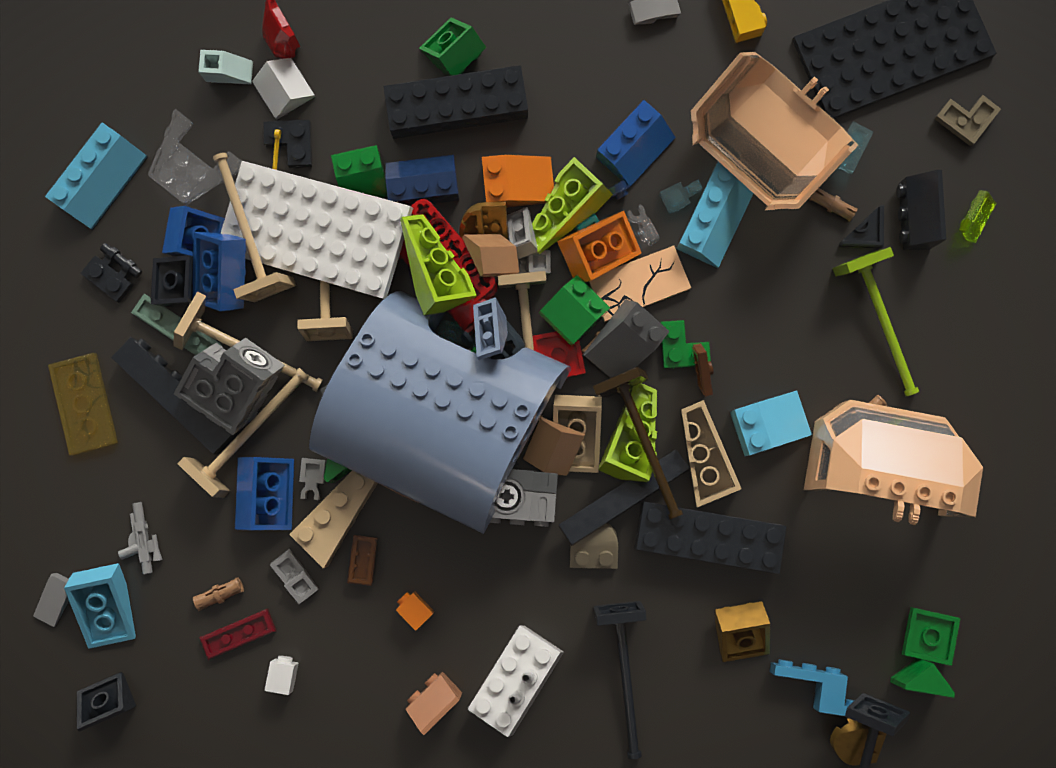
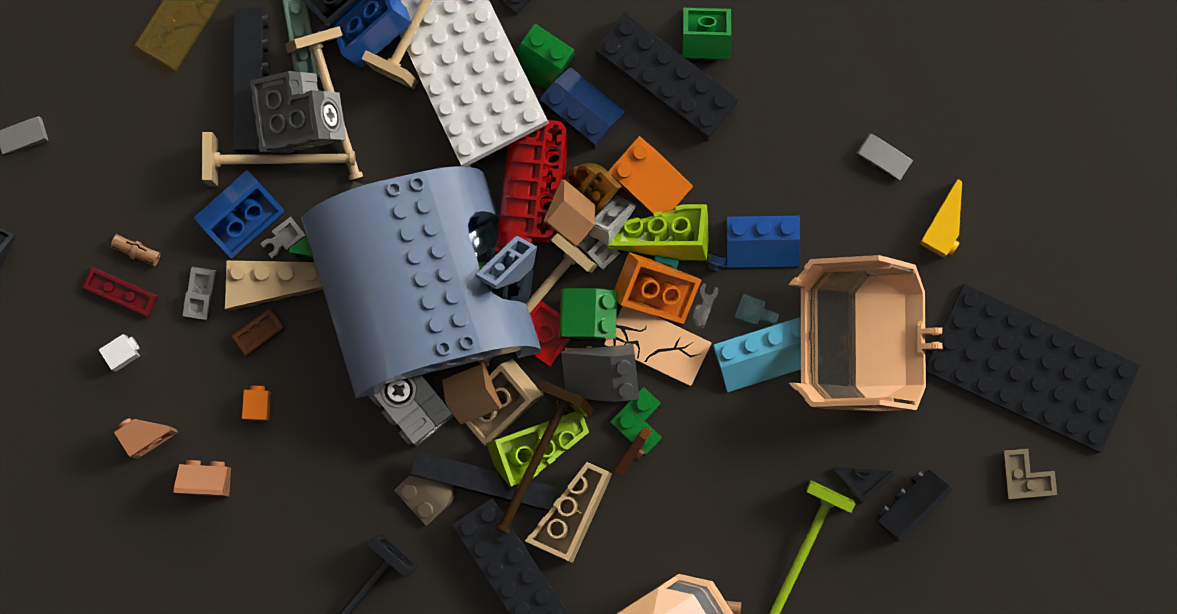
camera: 55 degrees right, 0 degrees up
(101, 605) = (49, 174): medium azure slope -> none
(139, 541) = (119, 157): light grey piece -> none
(326, 327) = (402, 141): tan tile -> none
(358, 718) = (142, 436): none -> nougat slope
(435, 274) = (515, 185): lime wedge -> none
(515, 680) = (274, 526): white piece -> none
(770, 423) = (644, 541): medium azure slope -> none
(833, 204) = (859, 434): medium nougat pin -> none
(861, 136) = (929, 406): clear light blue plate -> none
(977, 216) = (953, 553): clear neon green plate -> none

